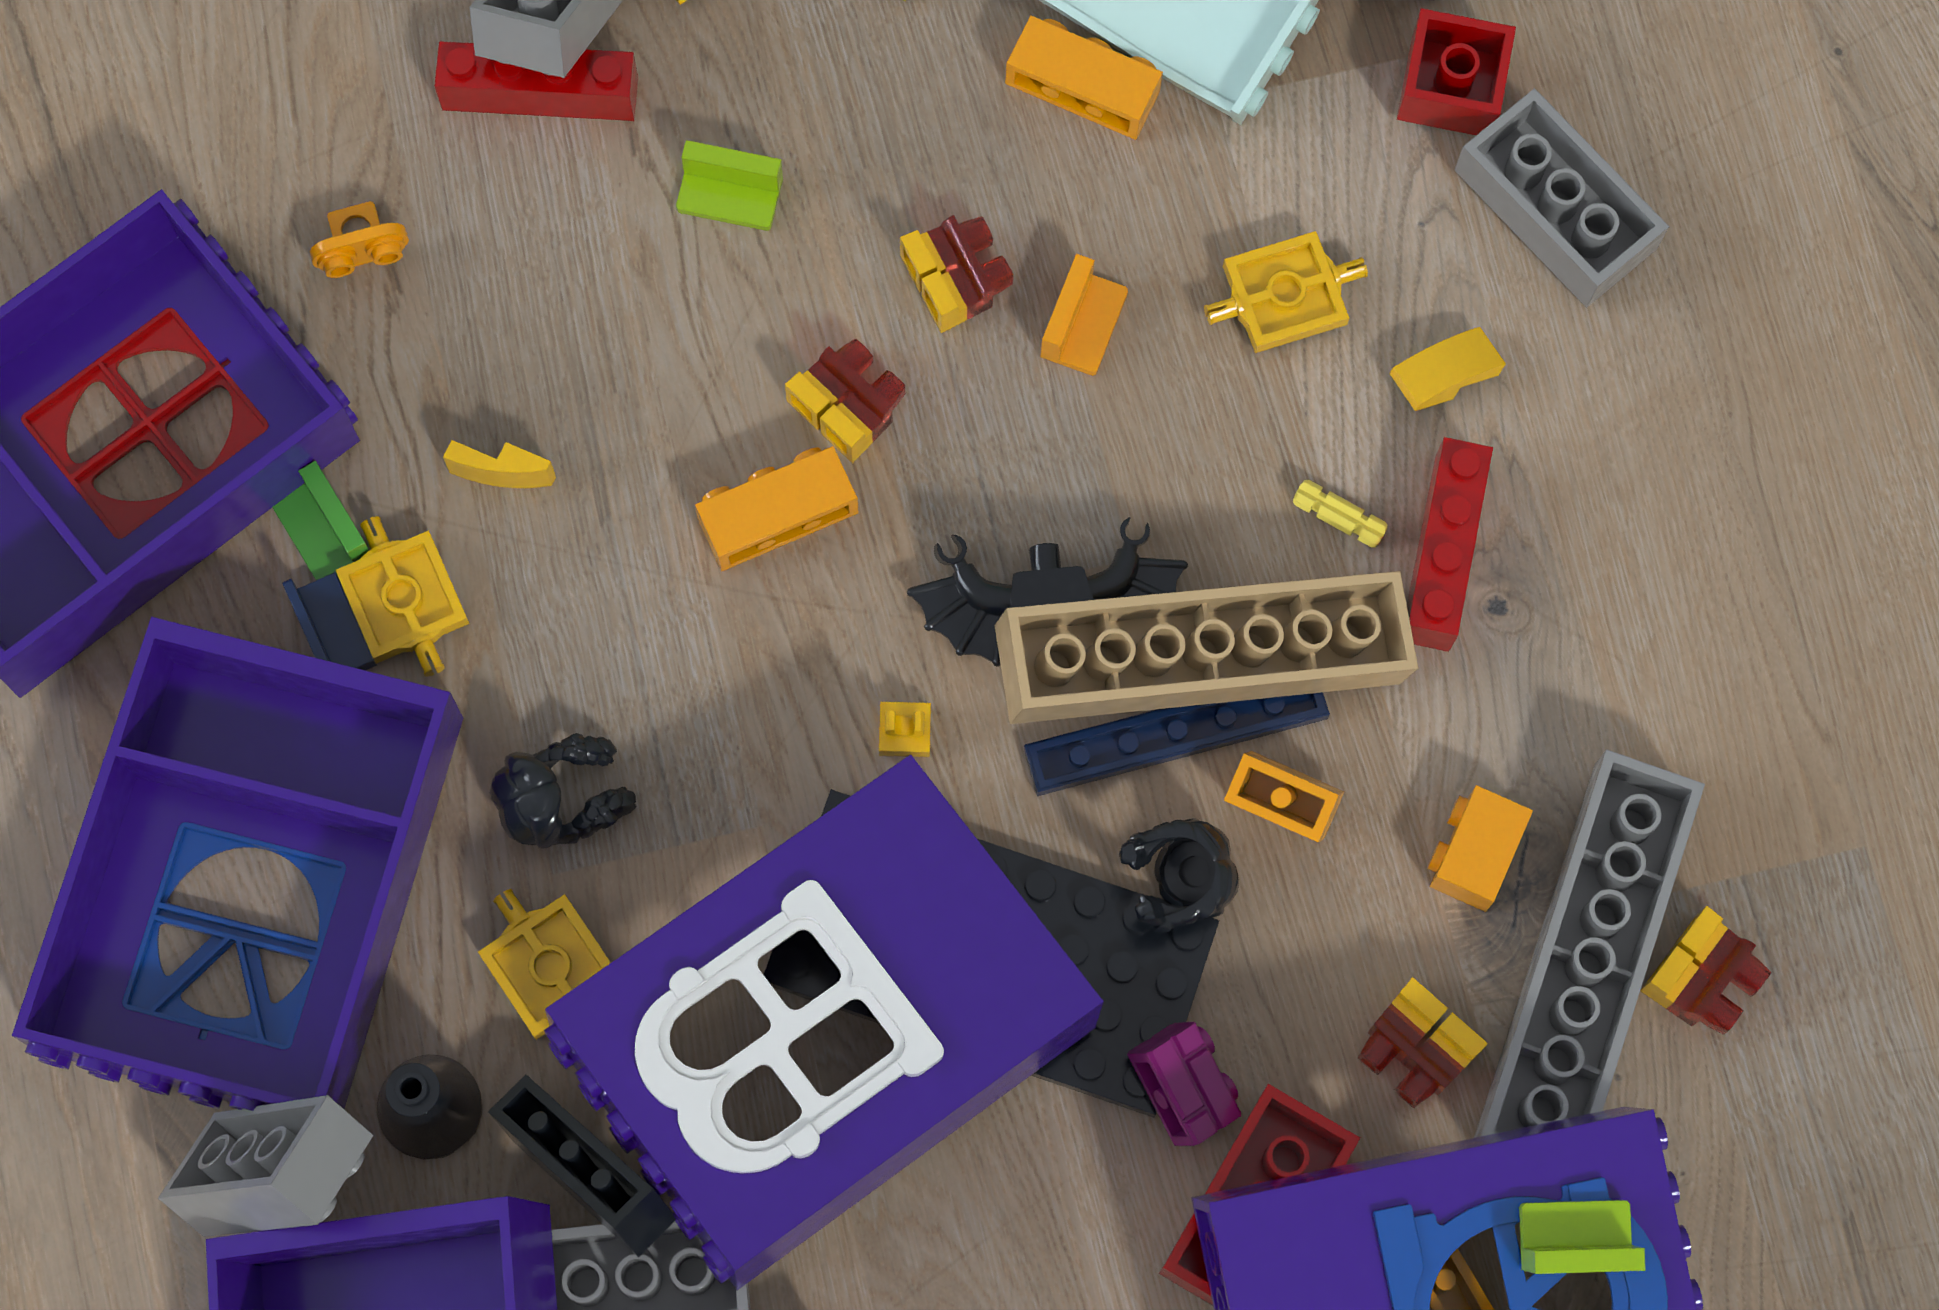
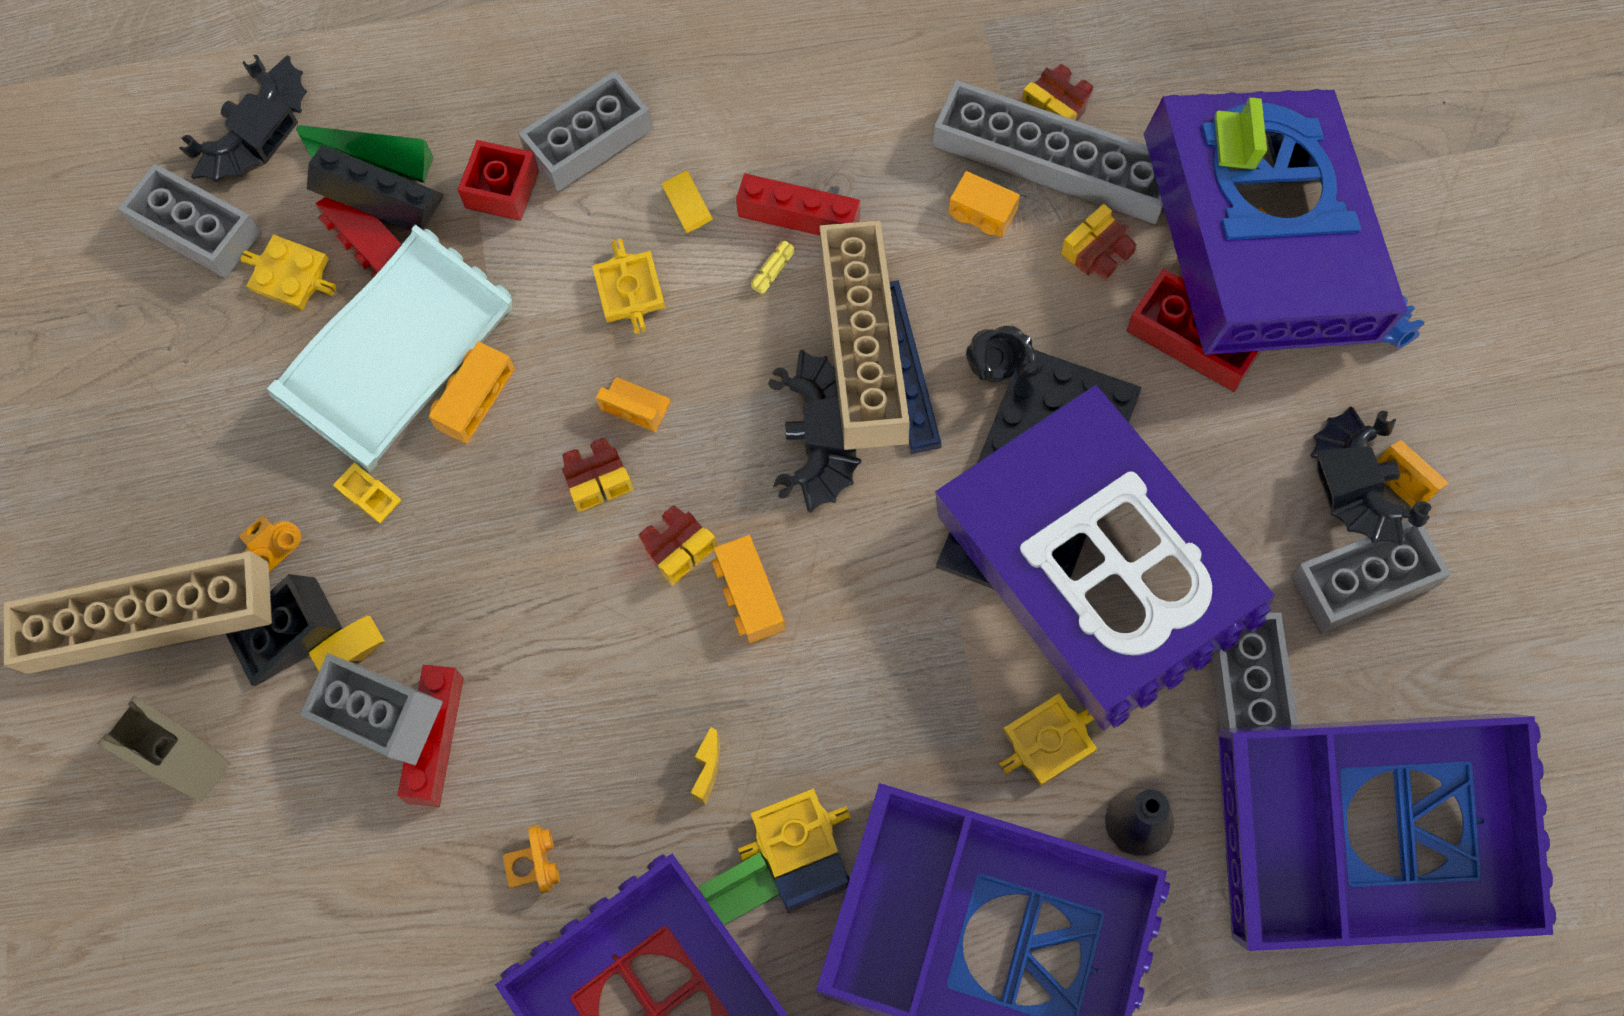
camera: 80 degrees left, 5 degrees down
(267, 1167) = (1203, 907): light grey brick -> none
(531, 798) = (942, 741): black hair -> none
(583, 1165) = (1189, 709): black brick -> none
(729, 185) = (520, 614): lime panel -> none
(904, 729) = (897, 520): yellow tile -> none
(1186, 1083) = (1127, 364): magenta brick -> none
(1284, 796) = (952, 301): light orange brick -> none

